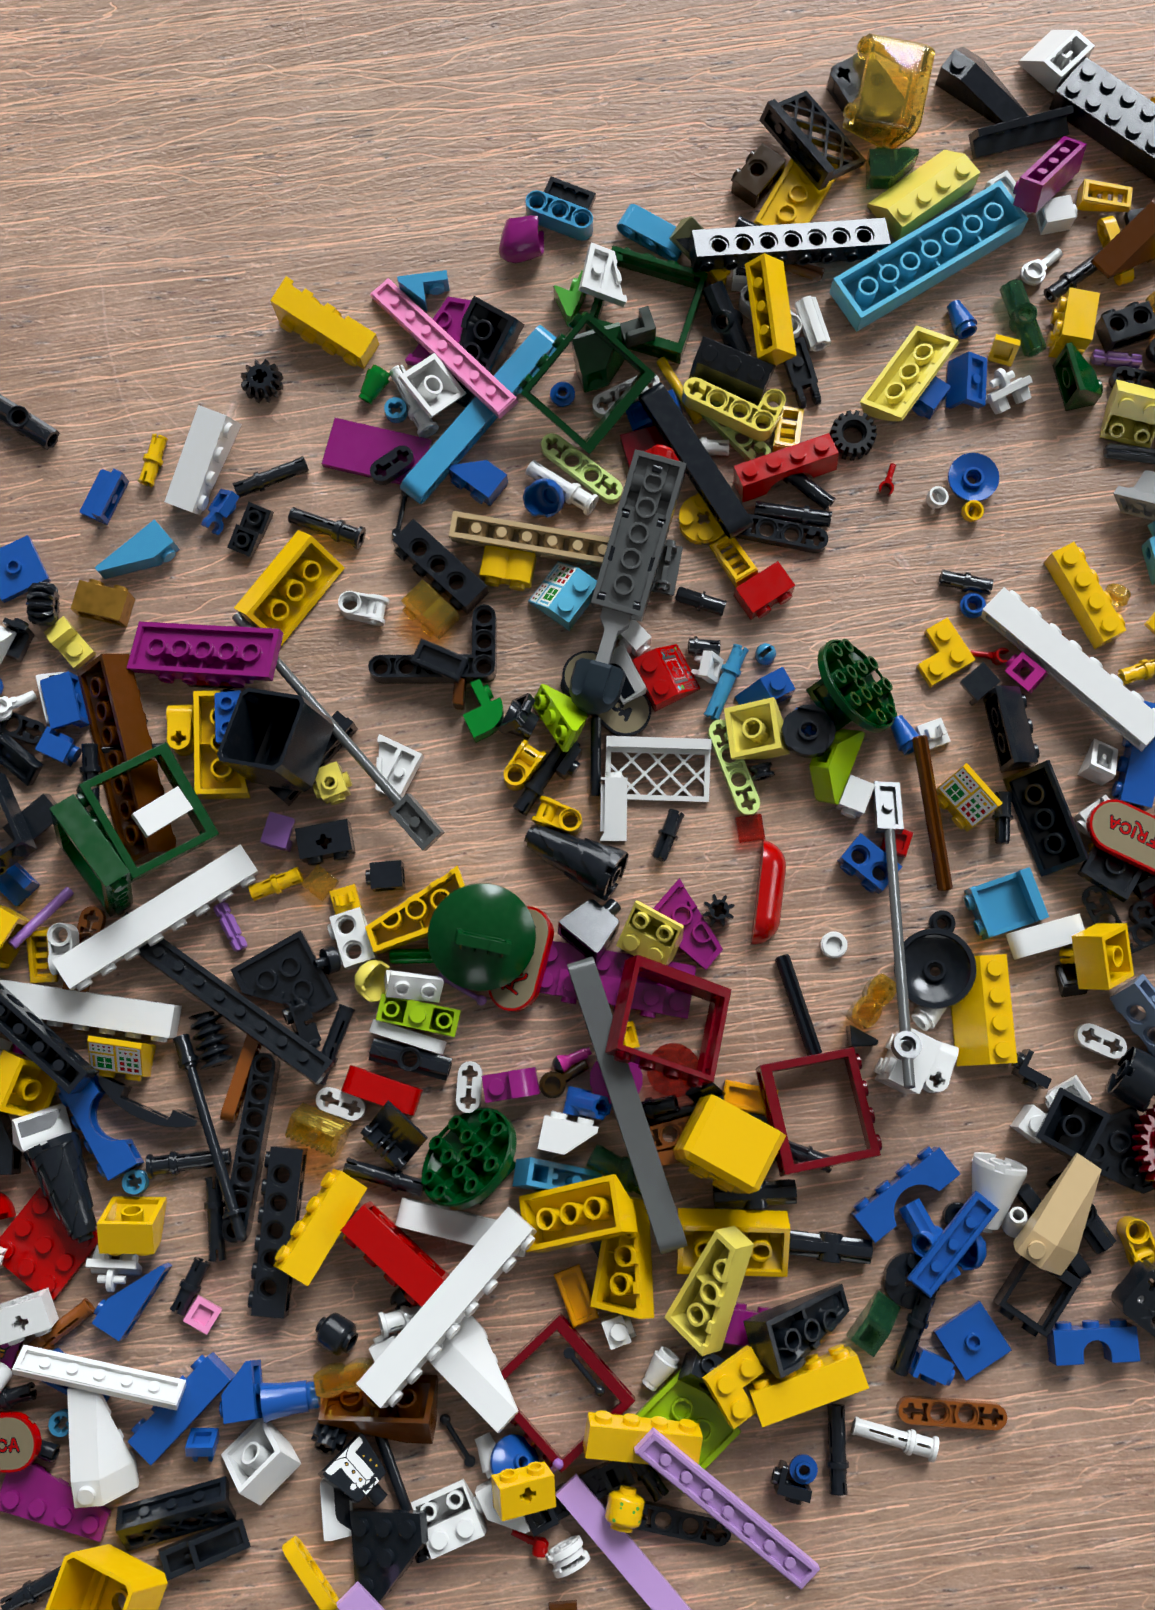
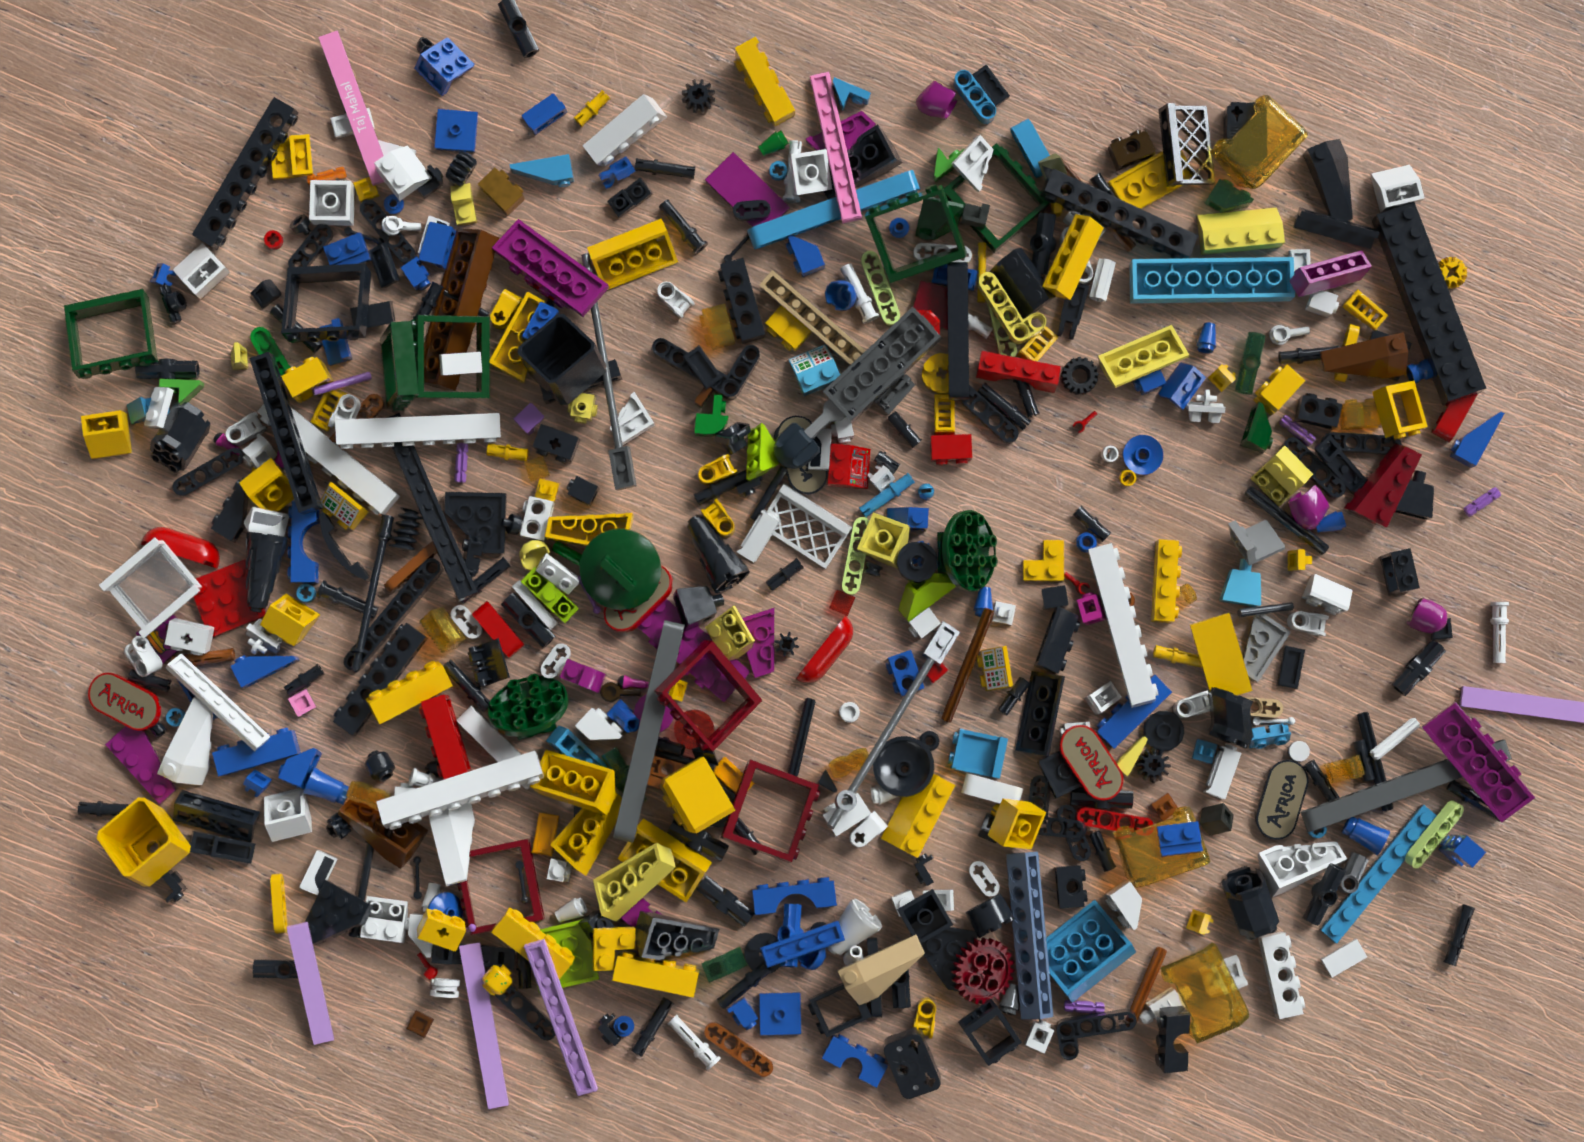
camera: 25 degrees right, 5 degrees up
(214, 1218) = (344, 646): black pin -> none
(356, 1472) = (343, 857): torso -> none

